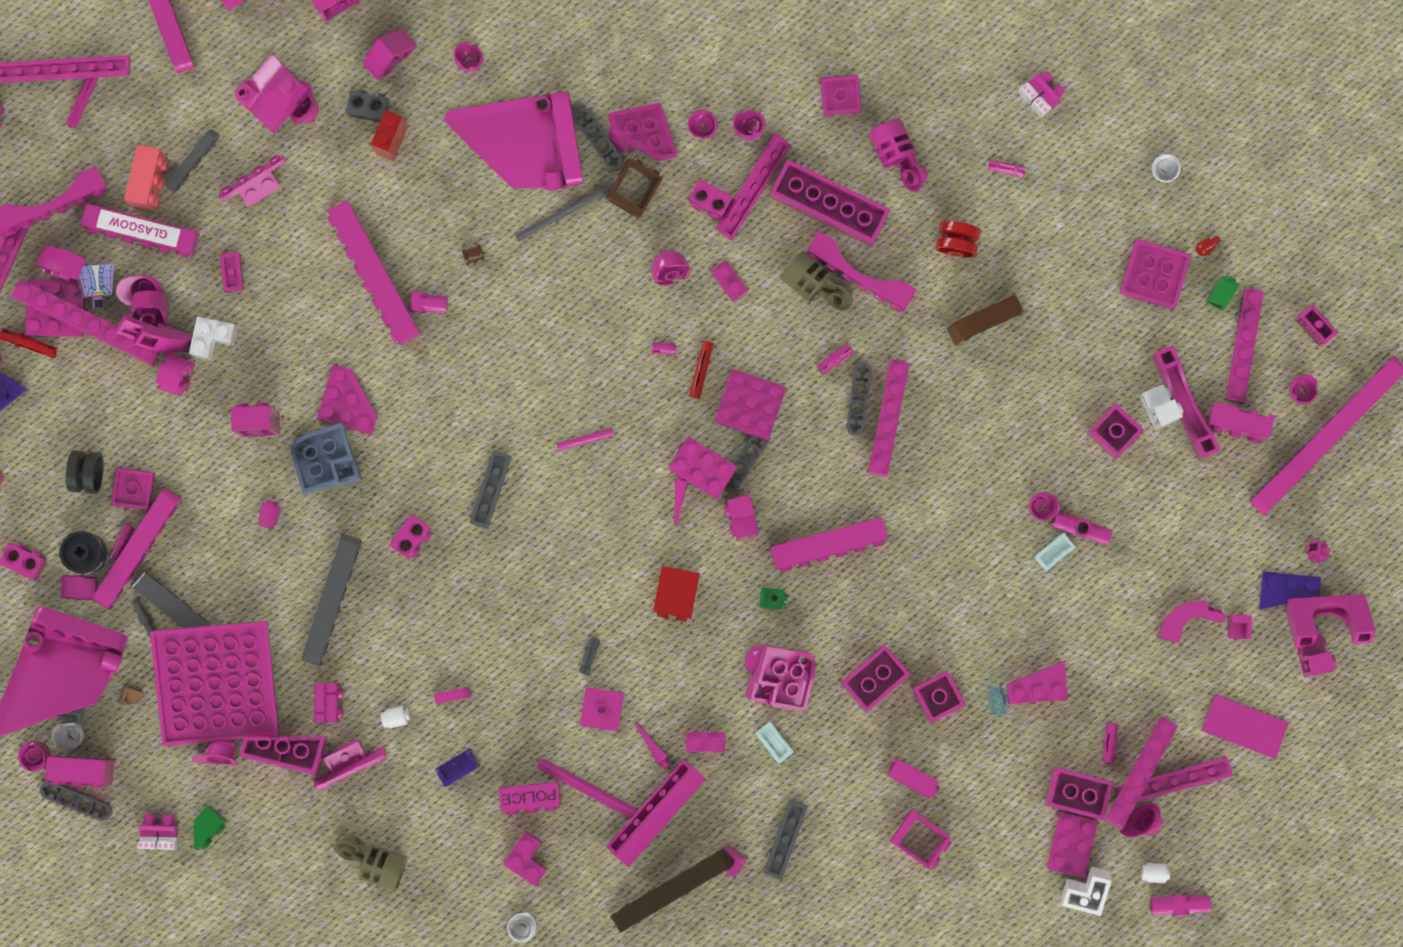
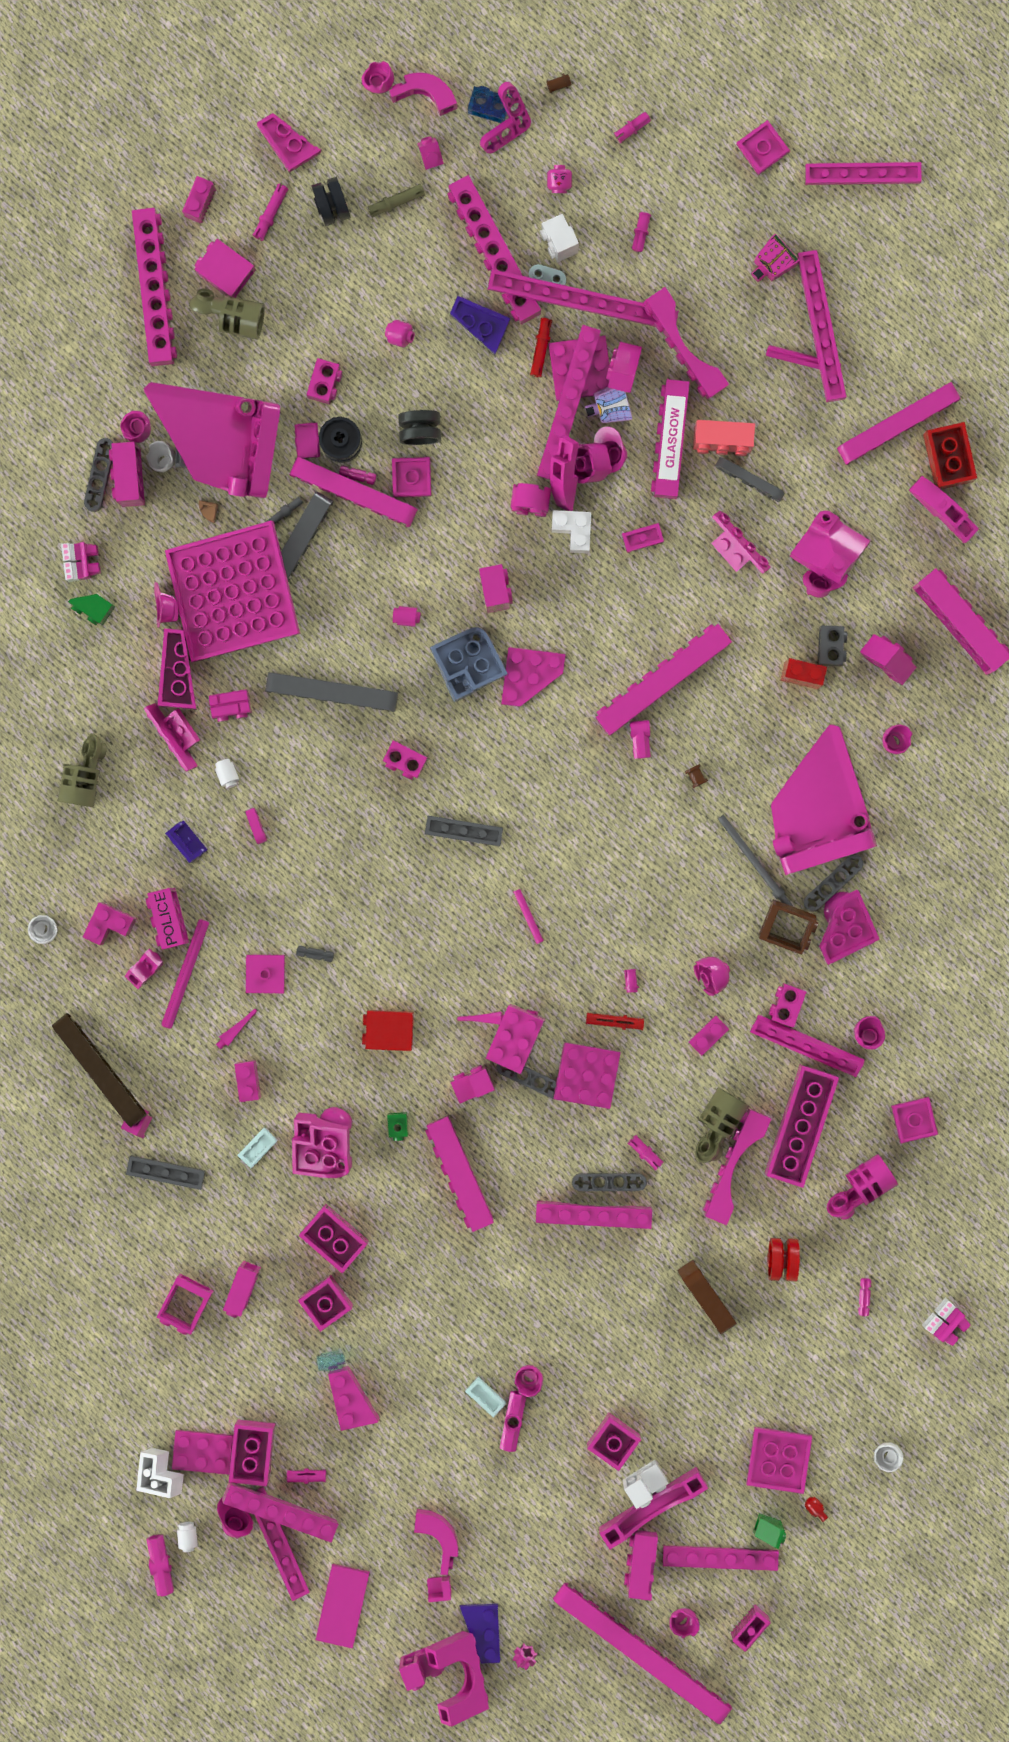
camera: 75 degrees right, 5 degrees up
(577, 829) = (144, 968): none -> dark pink brick
(655, 813) = (171, 1043): dark pink brick -> none
(707, 119) = (867, 991): dark pink hair -> none

